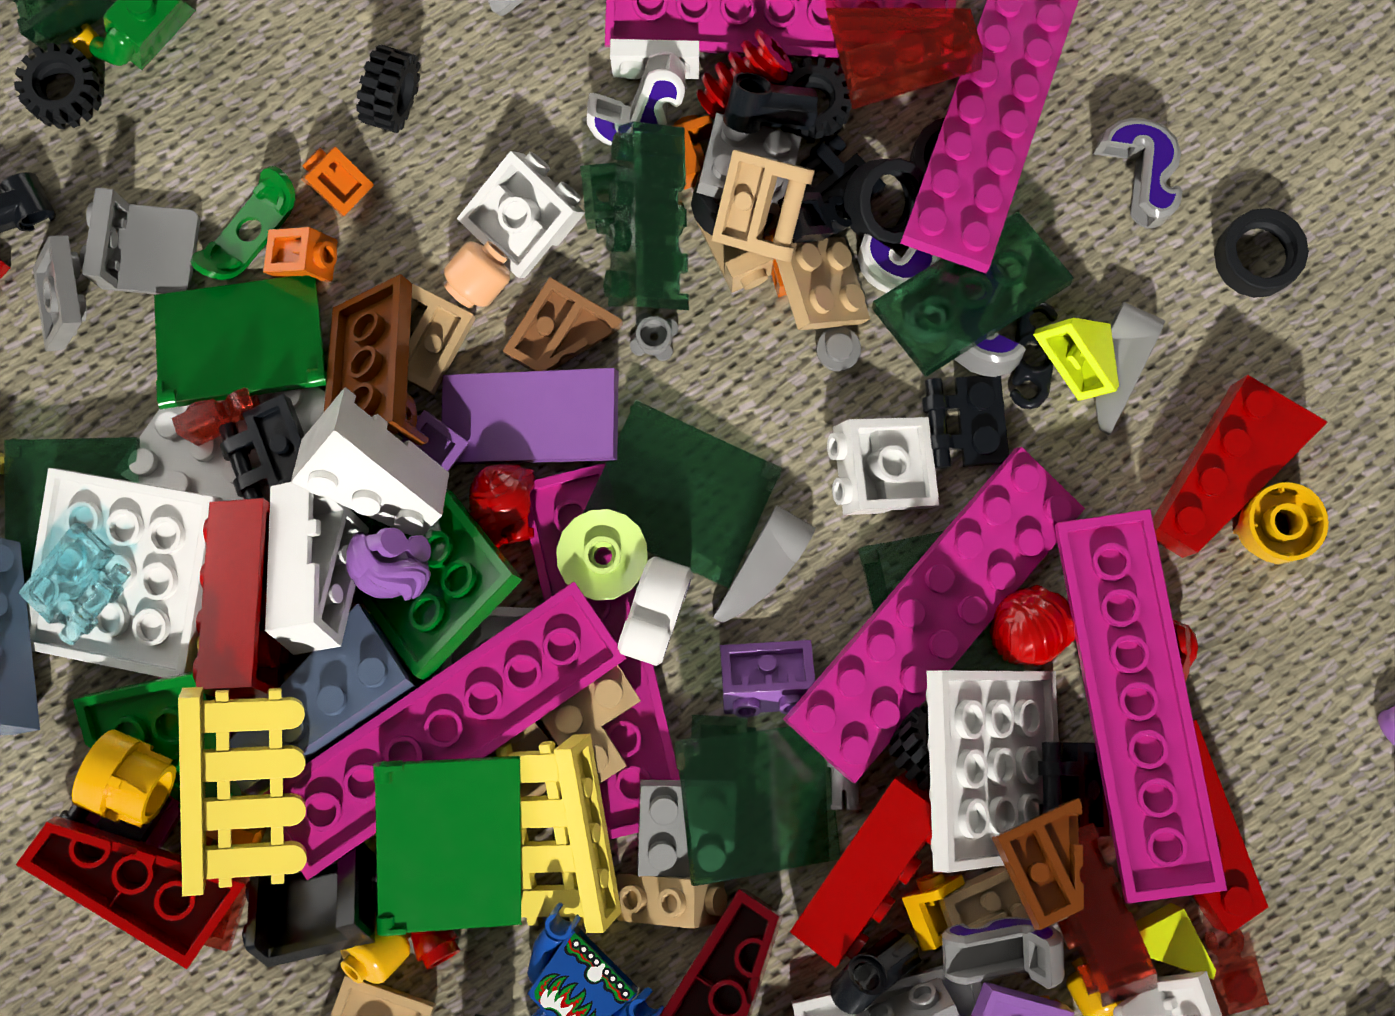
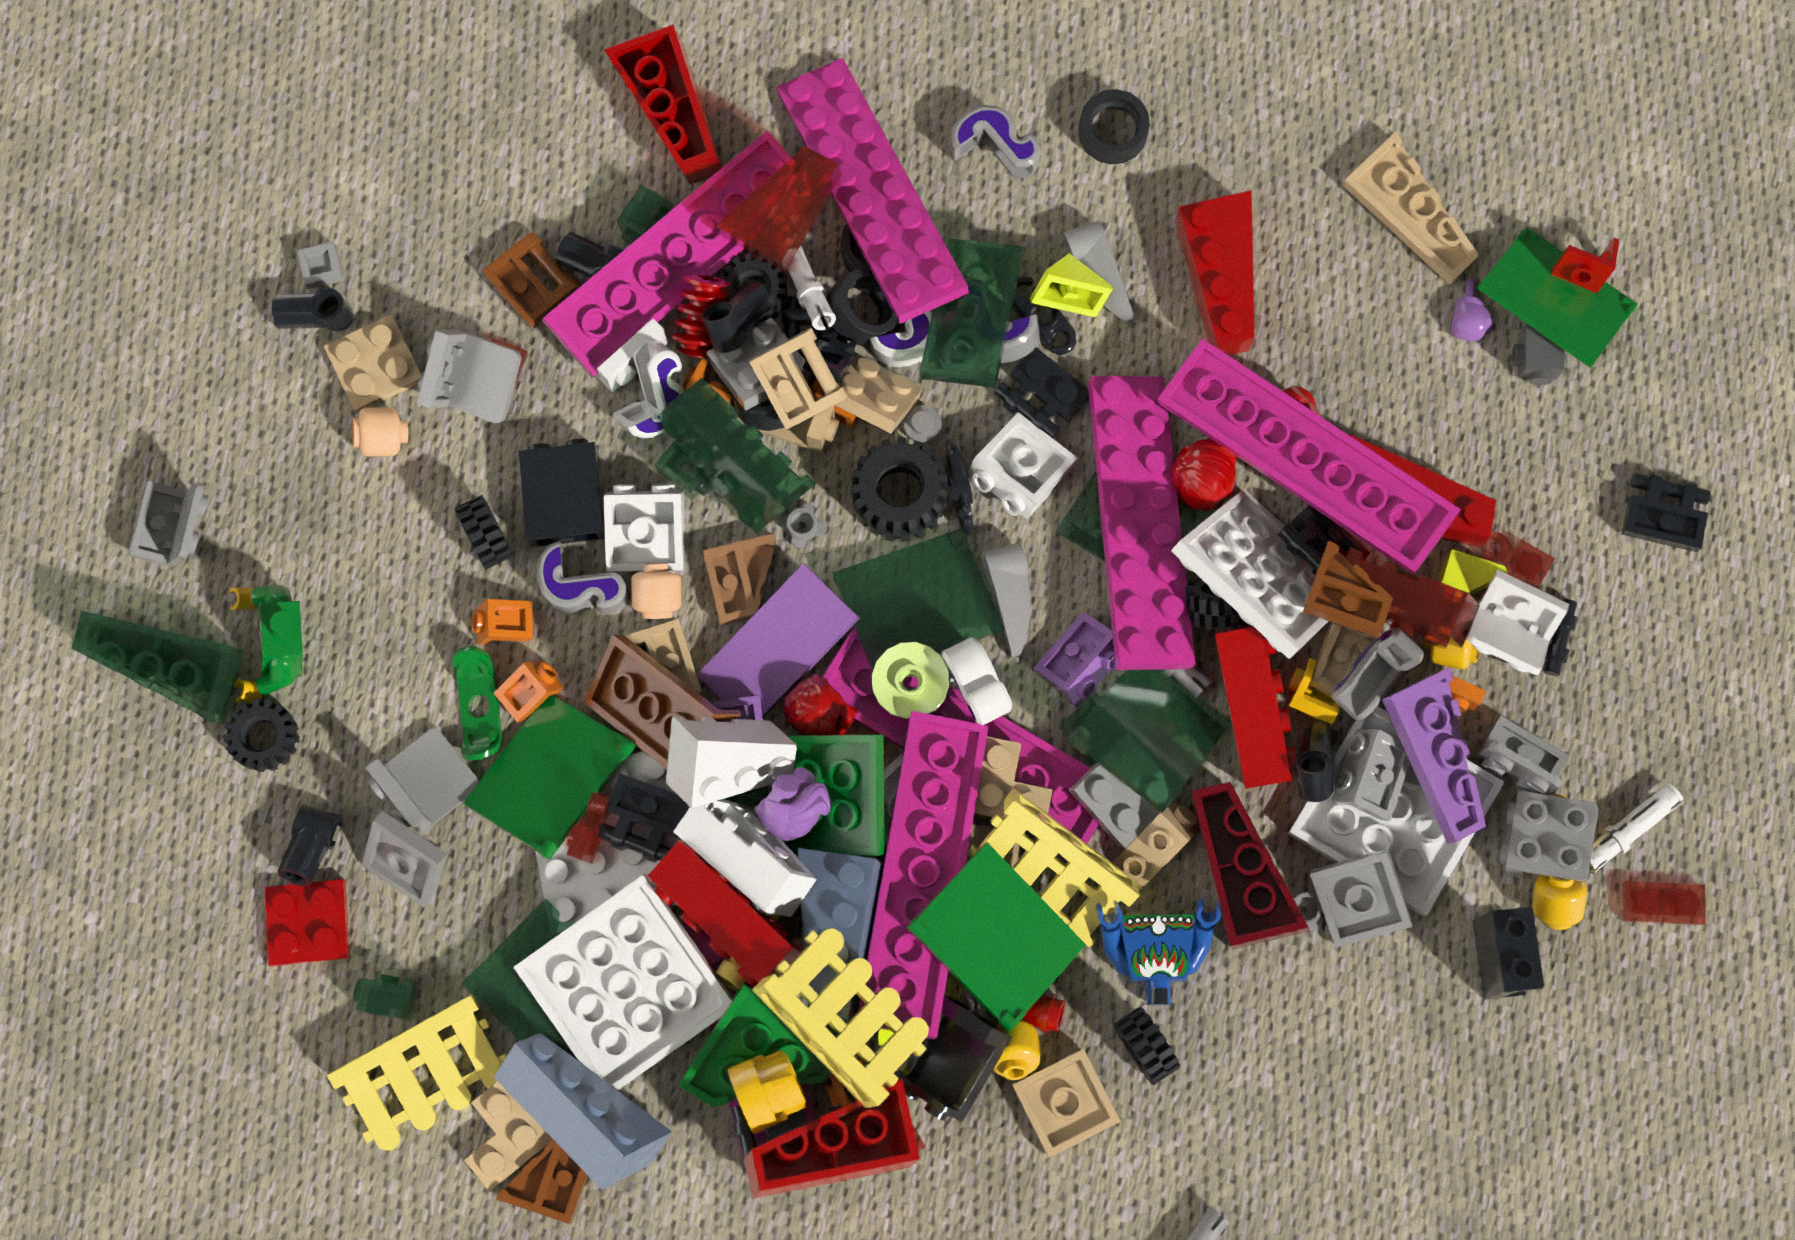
camera: 45 degrees left, 5 degrees down
(65, 576) = (594, 1016): clear light blue plate -> none
(415, 215) = (578, 593): none -> light grey animal
(484, 116) = (561, 493): none -> black panel
(768, 348) = (899, 520): none -> black tyre
(813, 433) = (961, 488): none -> black piece
(854, 146) = (810, 292): none -> white pin
(1304, 515) = (1289, 256): yellow piece -> none

